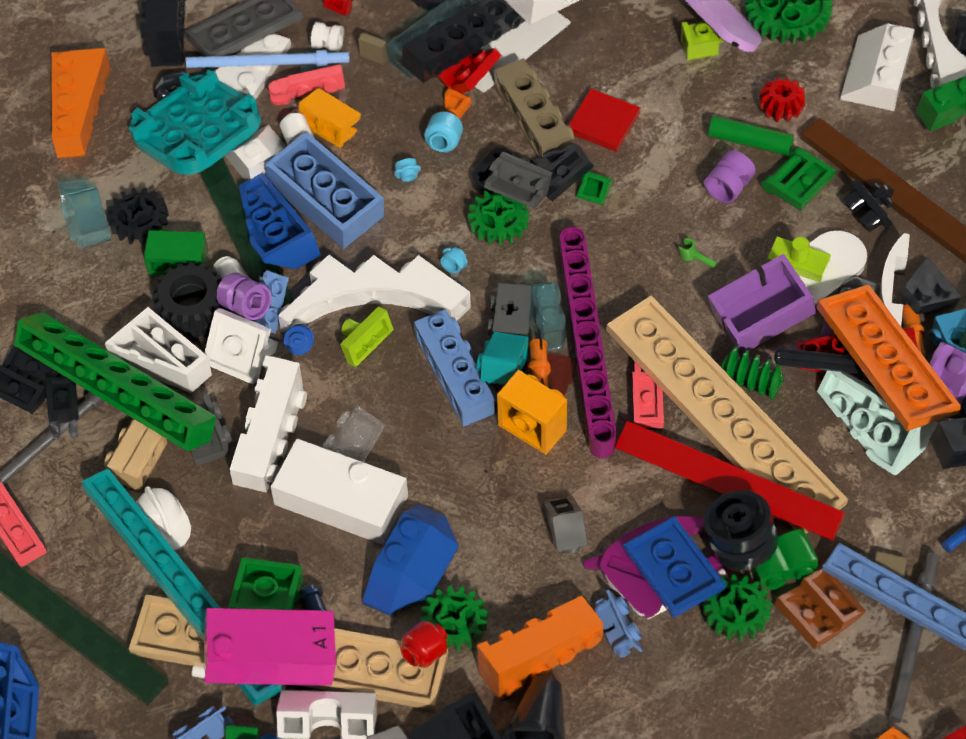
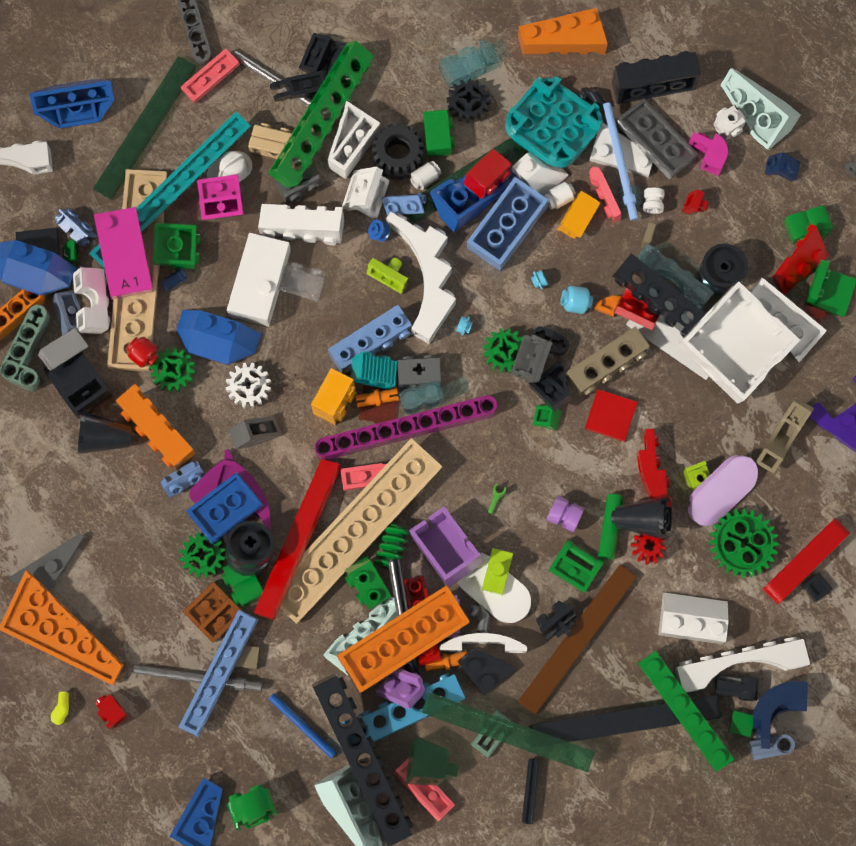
camera: 80 degrees right, 20 degrees up
(206, 526) = (220, 197): none -> dark pink brick
(244, 296) = (394, 184): medium lavender wheel -> none
(254, 193) = (487, 174): none -> red brick
(478, 523) = (256, 384): none -> white gear
(682, 87) = (653, 480): none -> red slope
(750, 81) = (645, 517): none -> black cone
(800, 403) = (367, 582): none -> green brick

